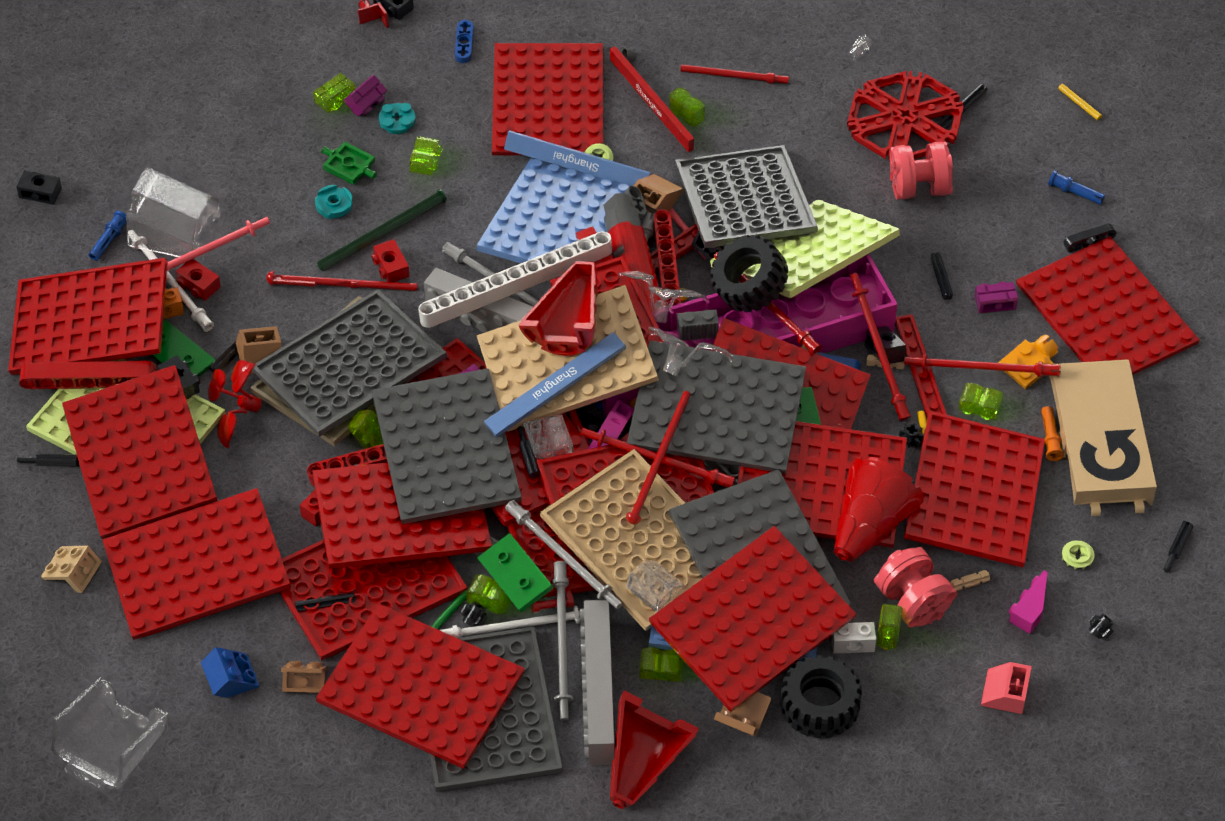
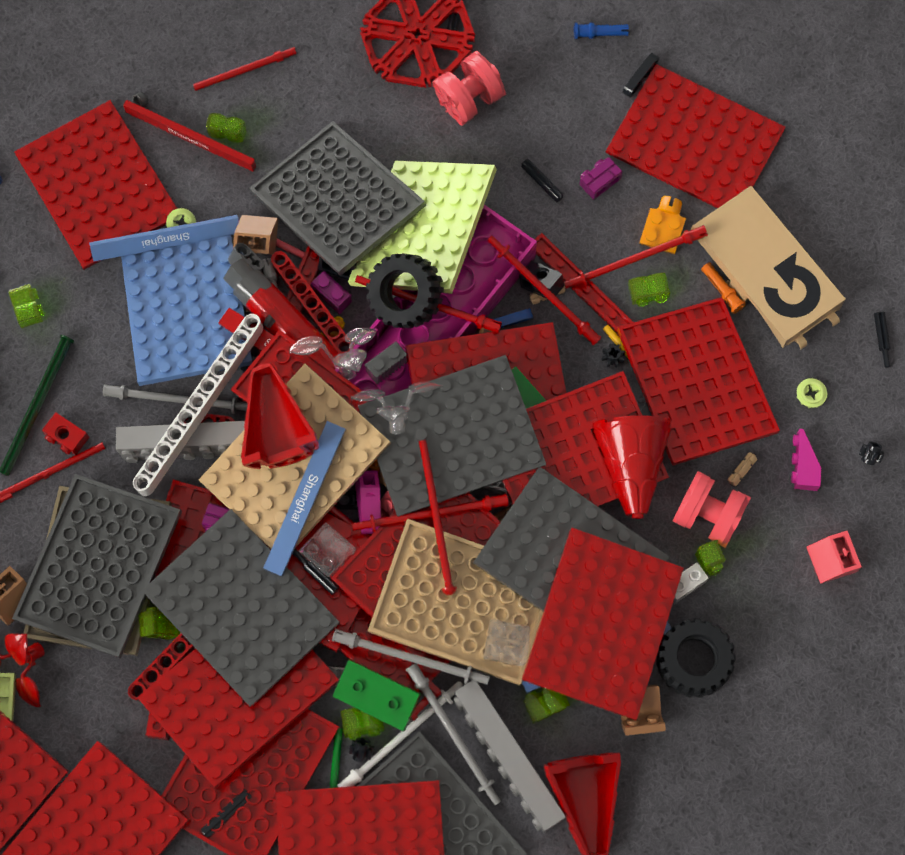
camera: 30 degrees left, 20 degrees up
(691, 267) = (331, 292): none -> magenta brick

